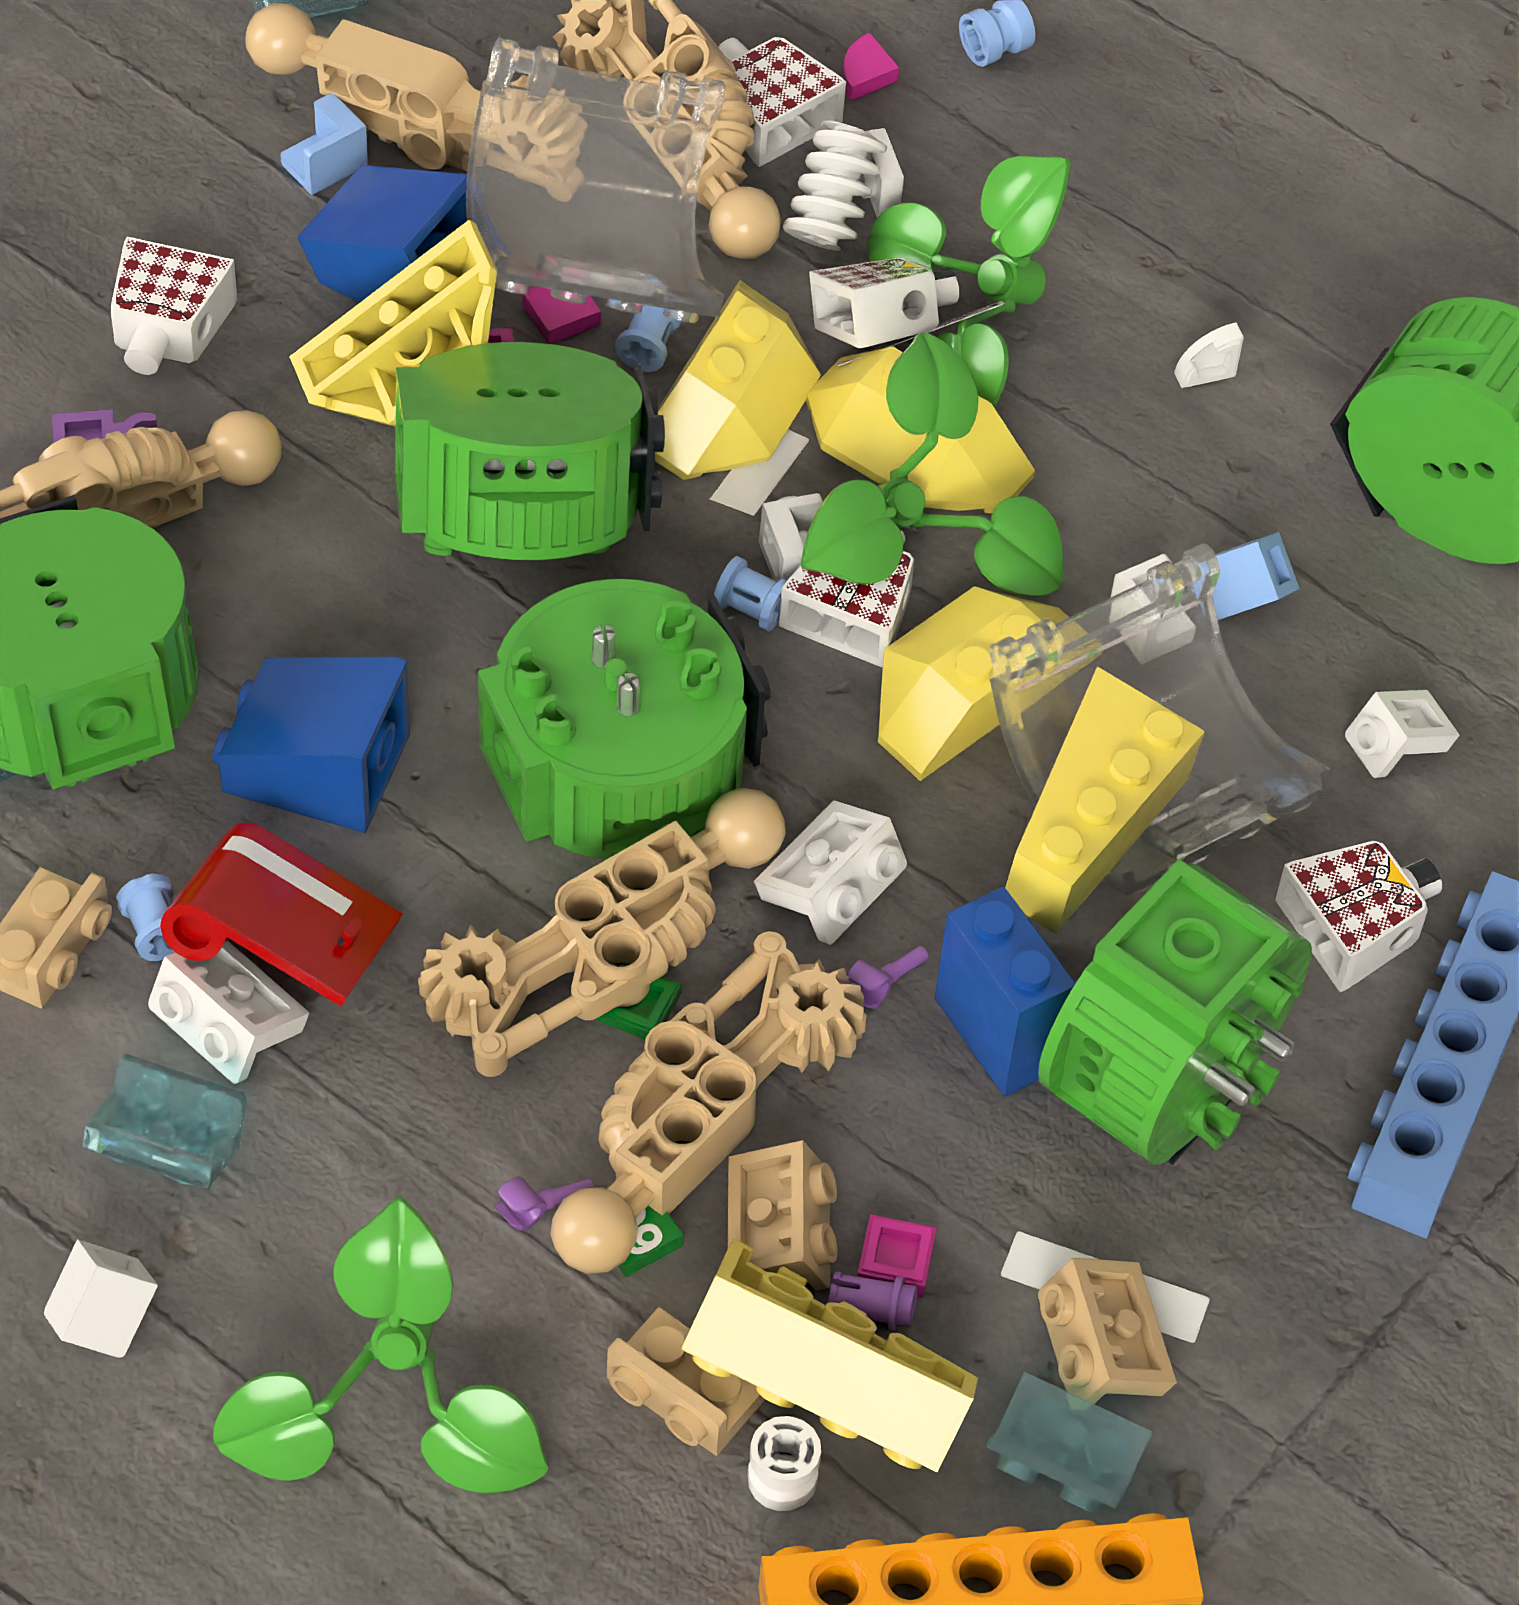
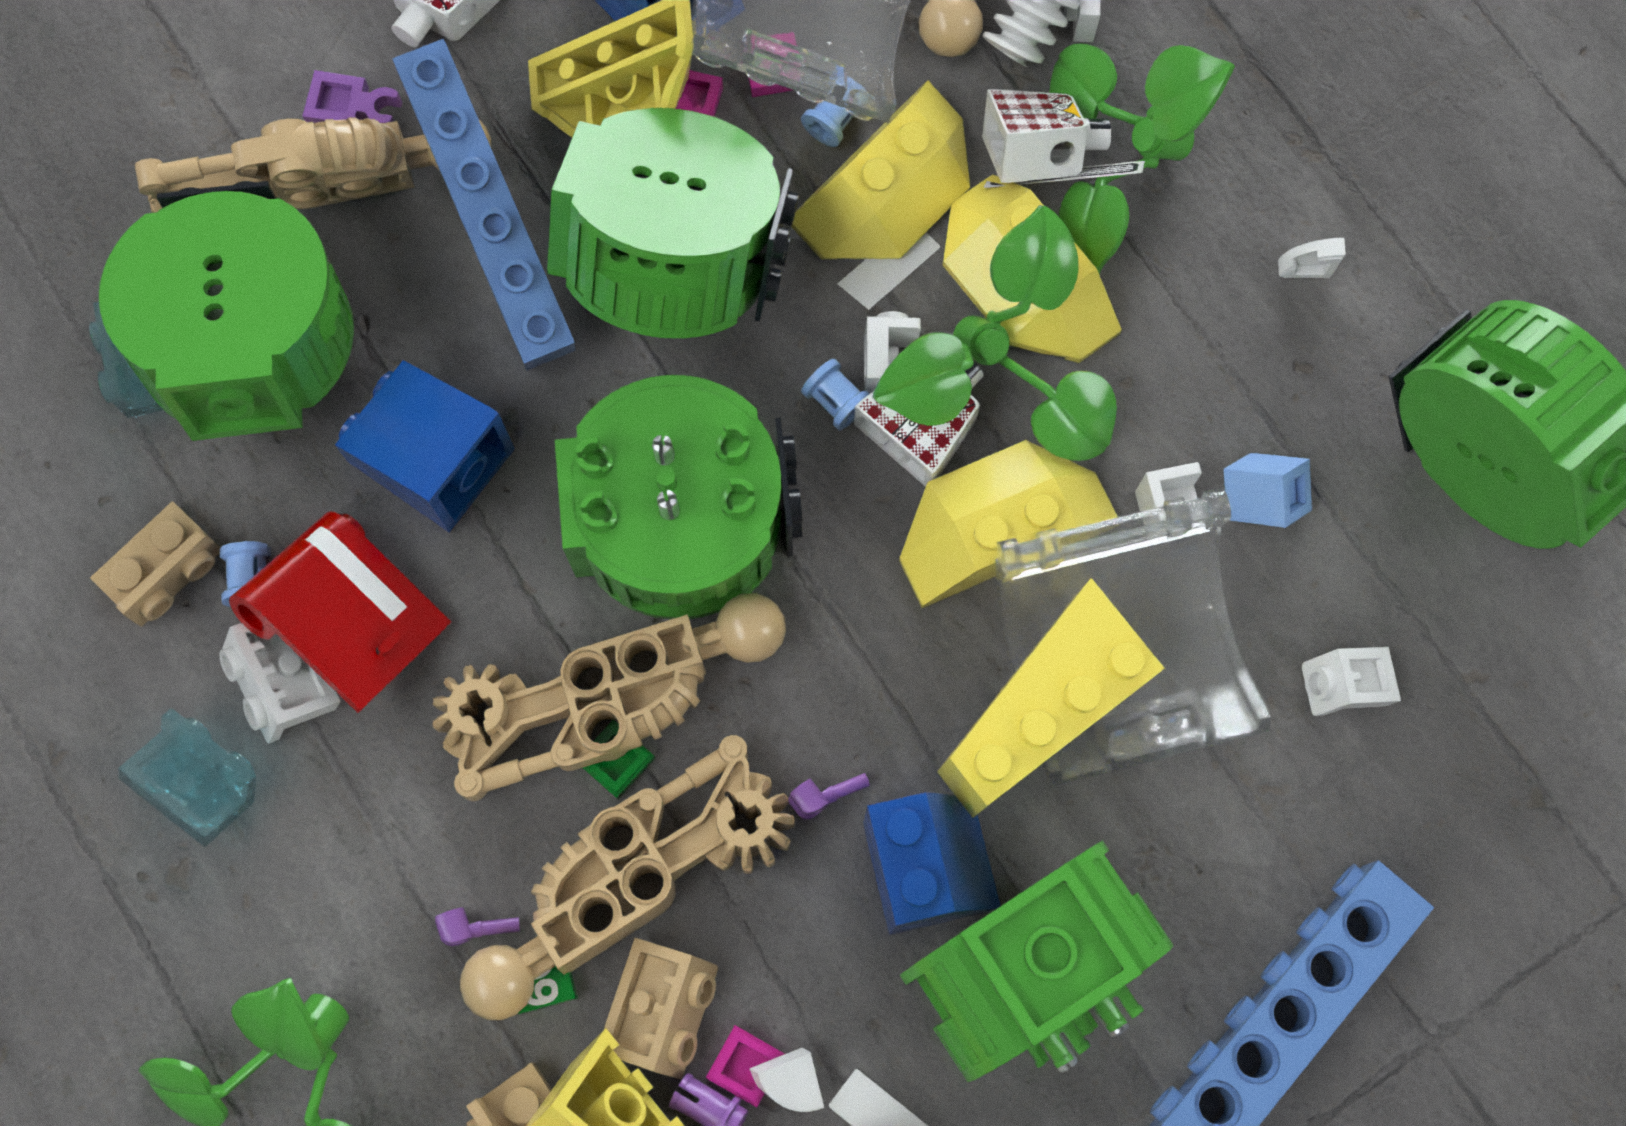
camera: 20 degrees right, 20 degrees up
(100, 1299) = (90, 922): white panel -> none
(310, 487) = (484, 204): none -> medium blue brick
(835, 868) = (815, 682): white bracket -> none
(954, 1247) = (790, 1081): none -> white tile
(1357, 907) = (1251, 849): white torso -> none

